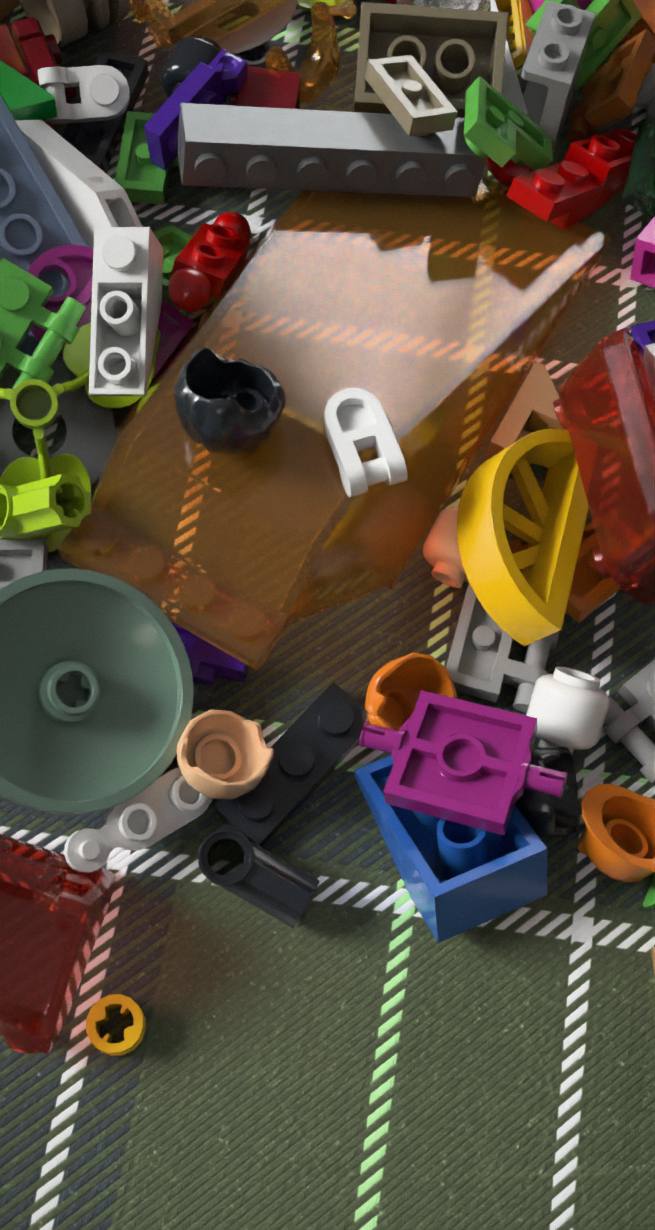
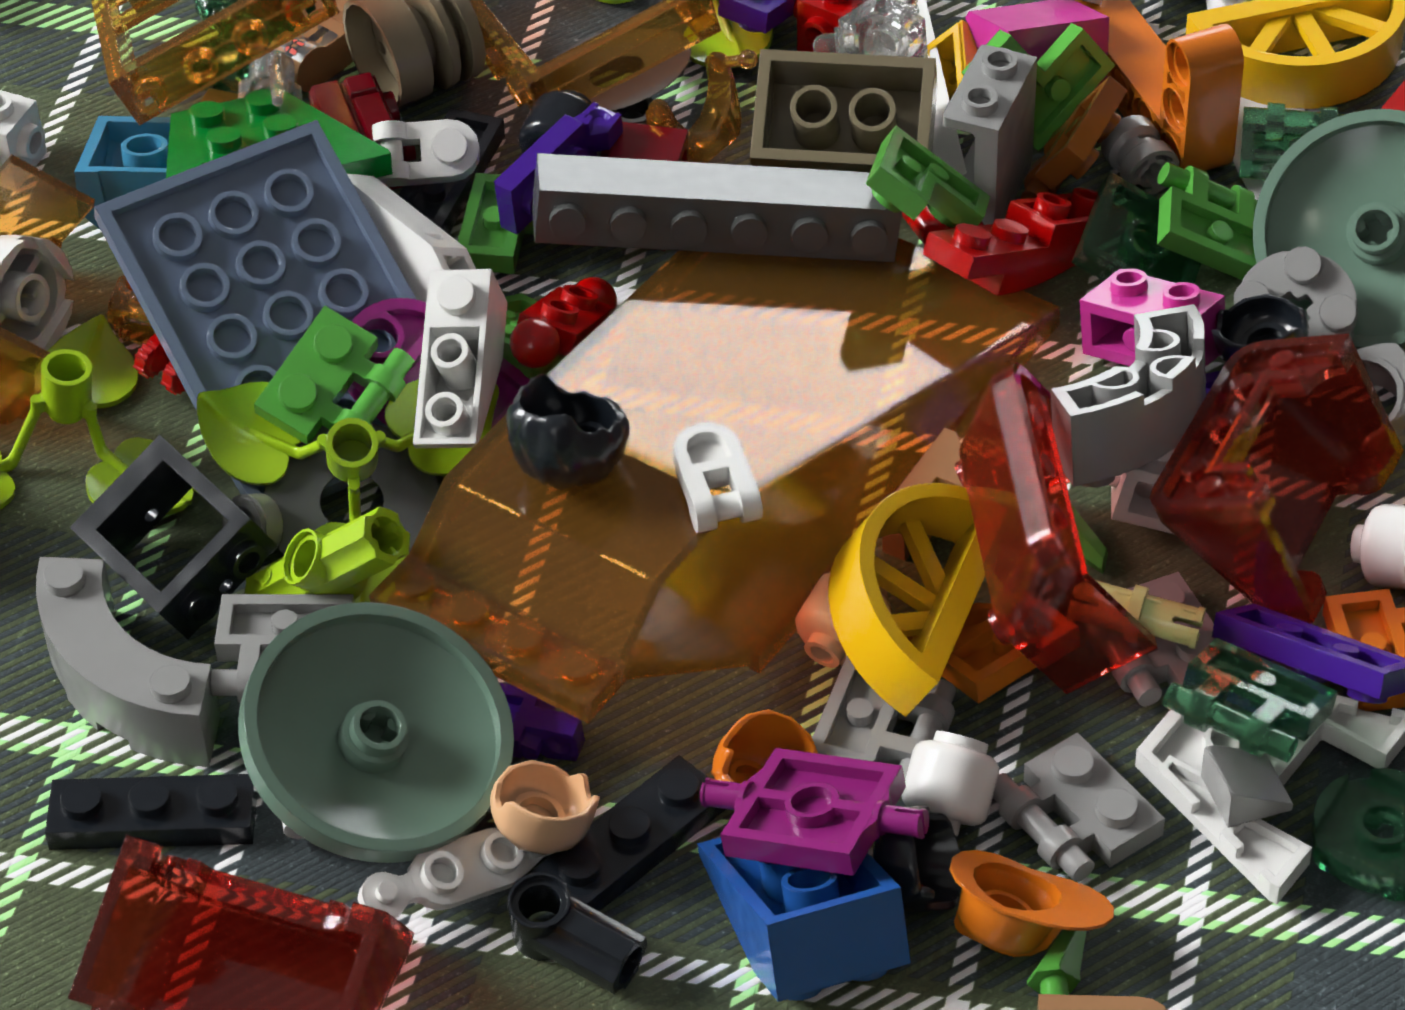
camera: 10 degrees right, 20 degrees down
(410, 95) = (811, 146): dark tan plate -> none

